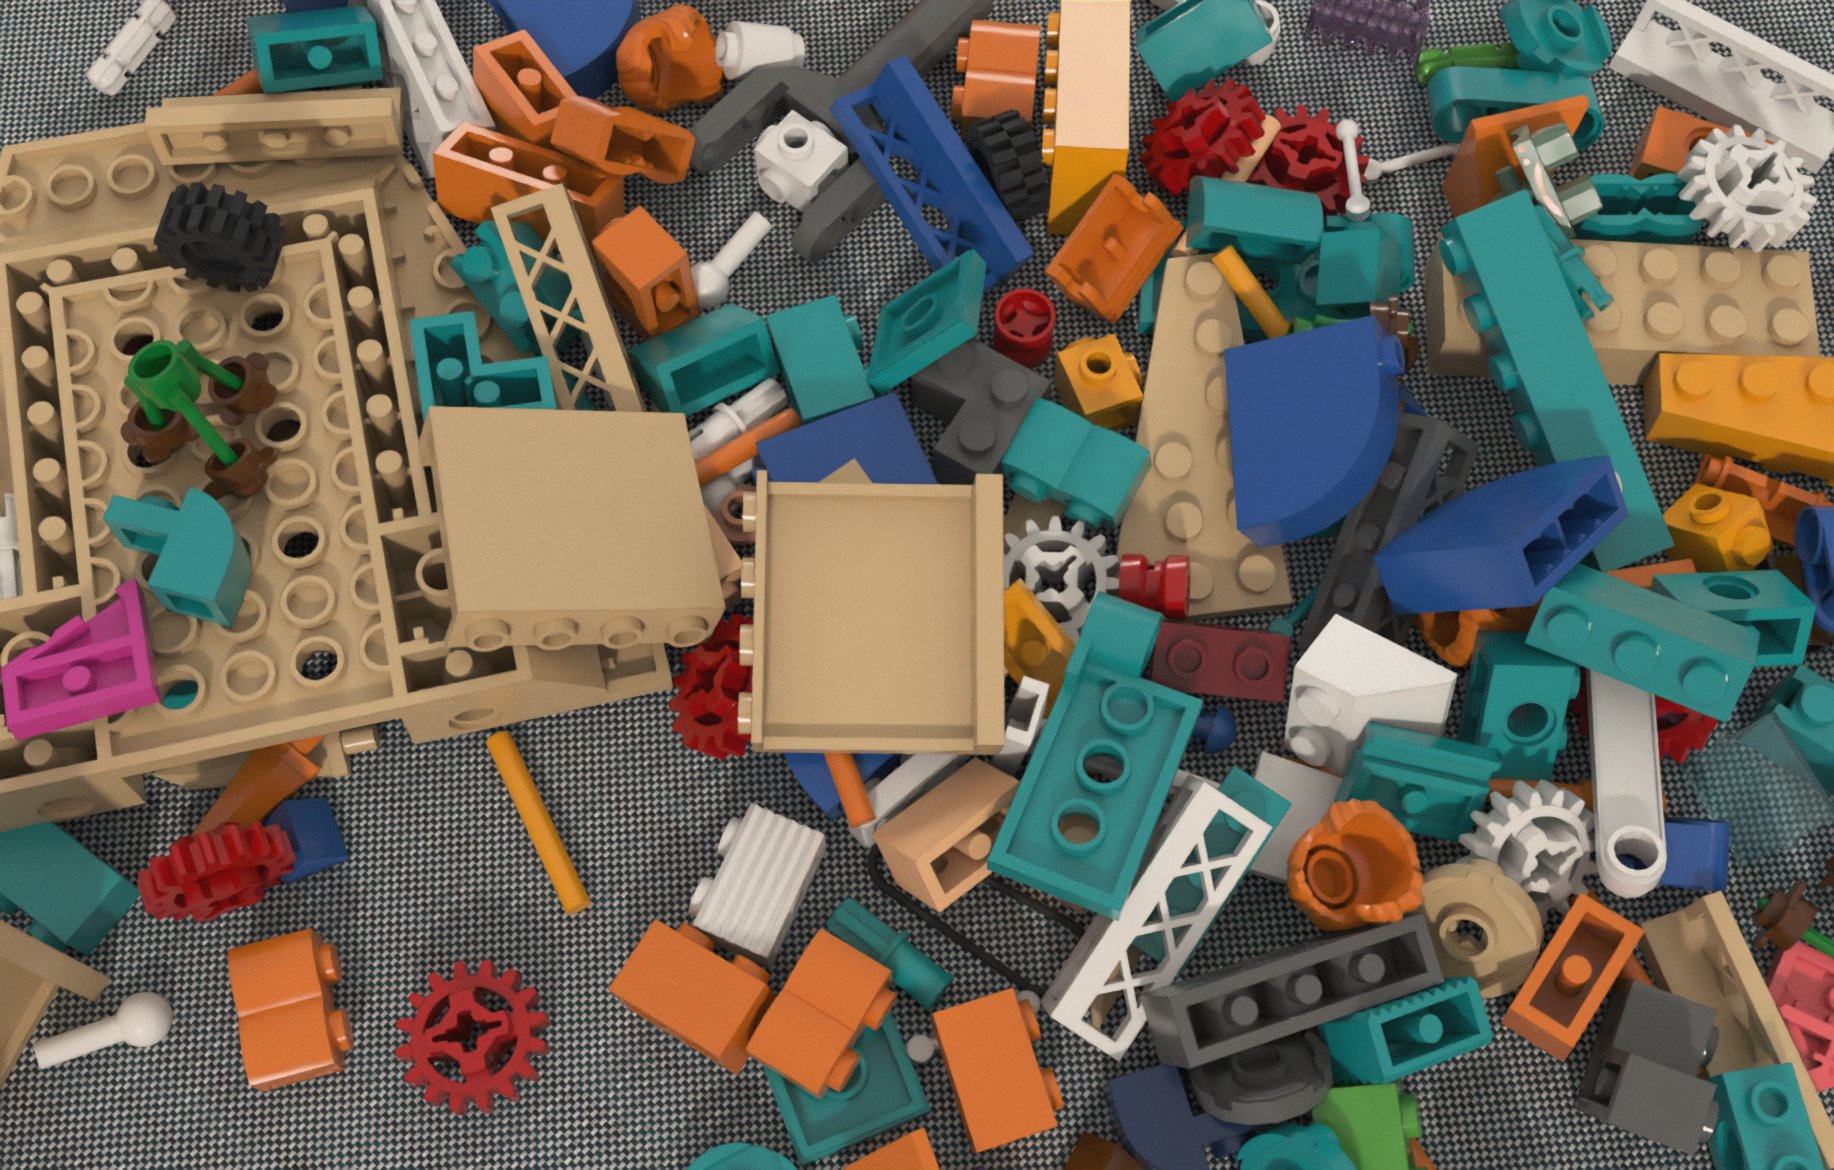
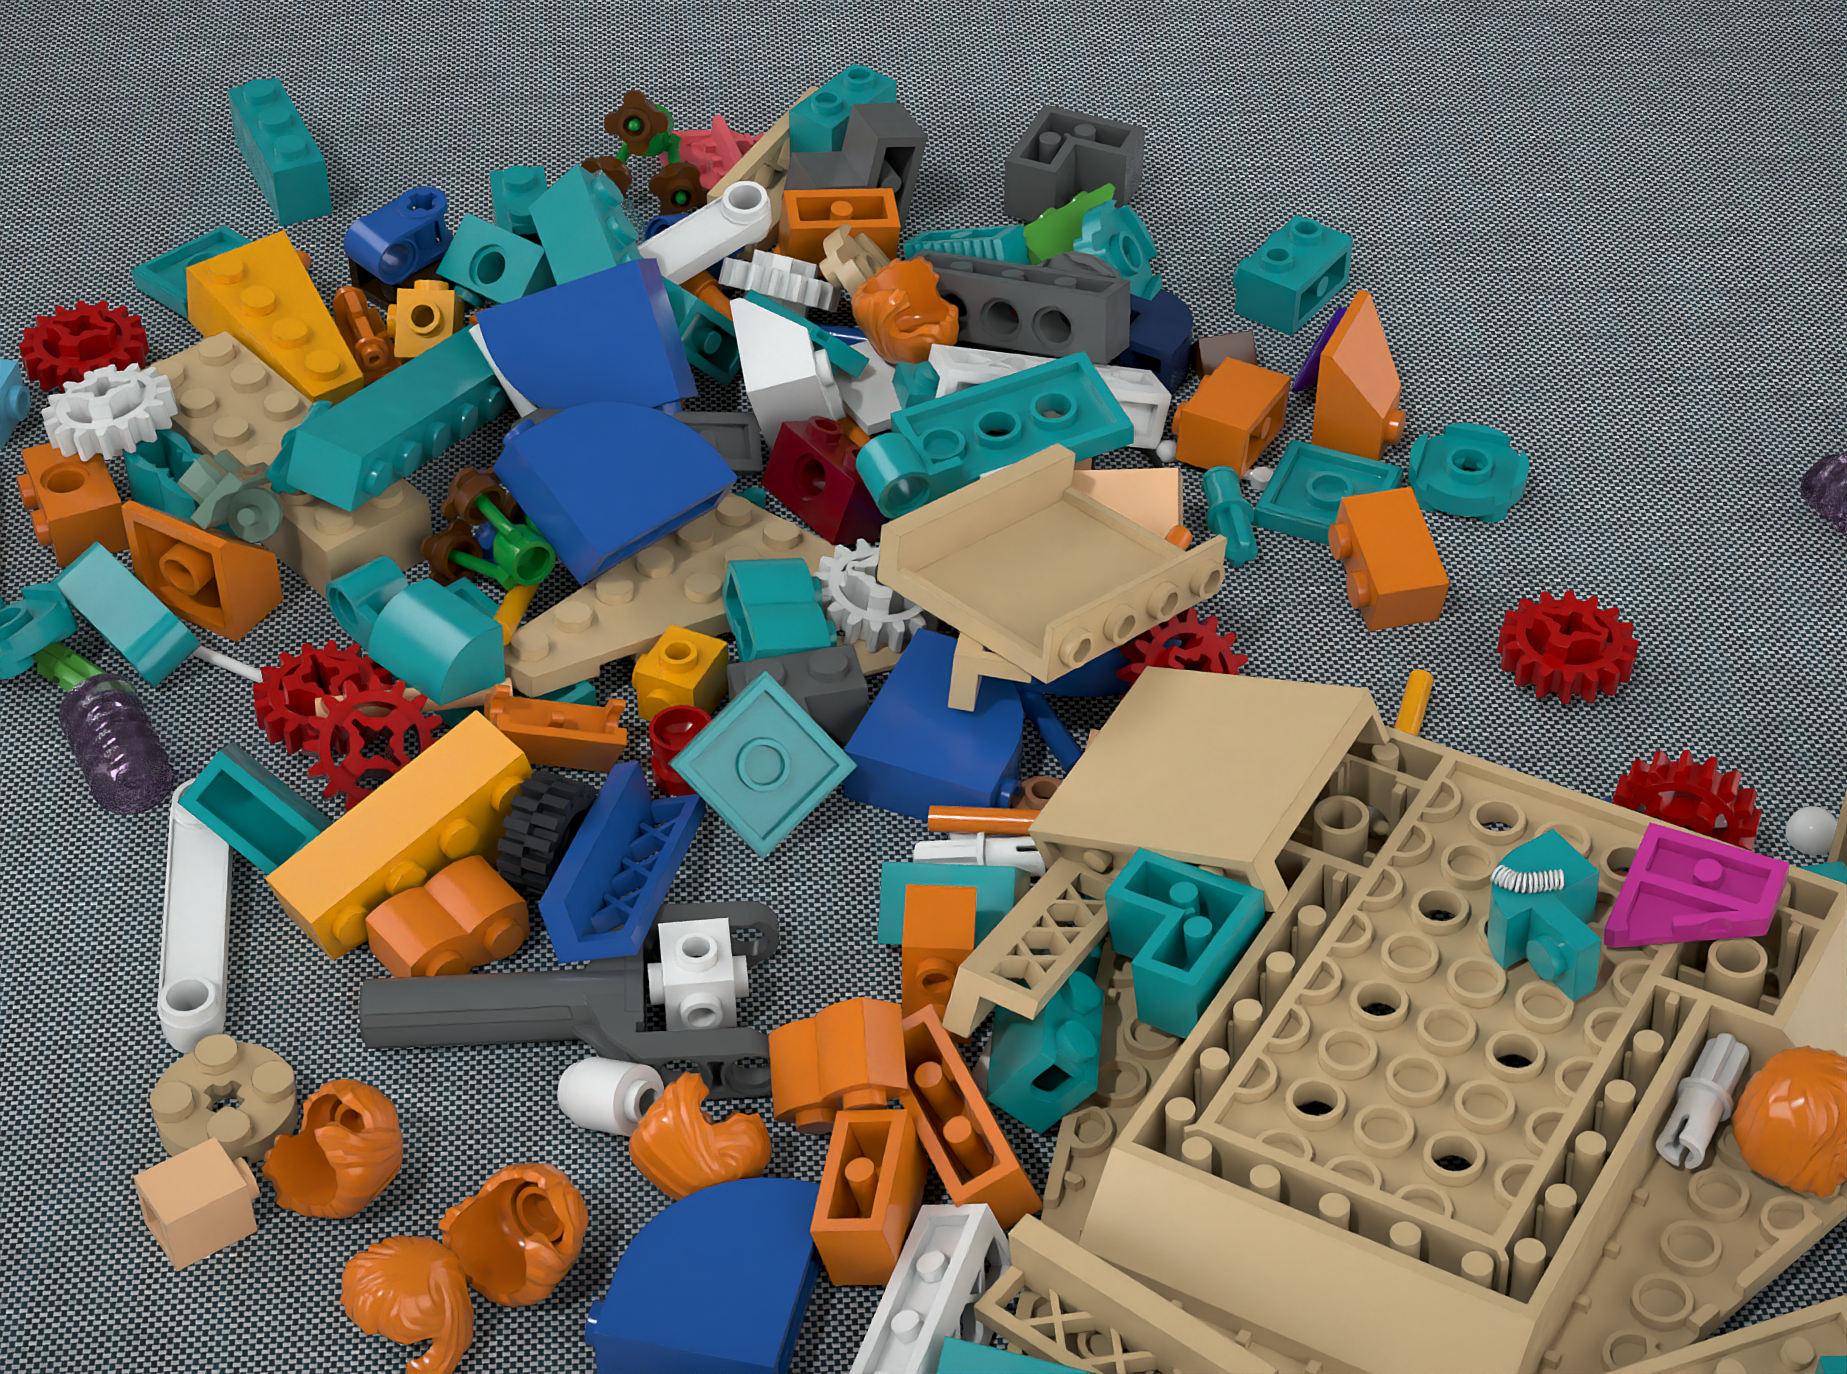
camera: 135 degrees left, 25 degrees down
(165, 418) = (1458, 965): plant -> none
(210, 514) = (1508, 878): none -> white leg
(220, 237) = (1309, 1111): black tyre -> none
(289, 1009) = (1699, 721): orange brick -> none
(712, 277) = (871, 981): white bar -> none
(758, 884) = (1284, 592): white brick -> none
(820, 358) = (867, 822): teal brick -> none
(822, 1014) = (1301, 492): orange brick -> none
(1157, 585) = (816, 519): red wheel -> none
(1356, 269) = (430, 547): teal brick -> none
(1357, 205) = (354, 606): white hinge -> none

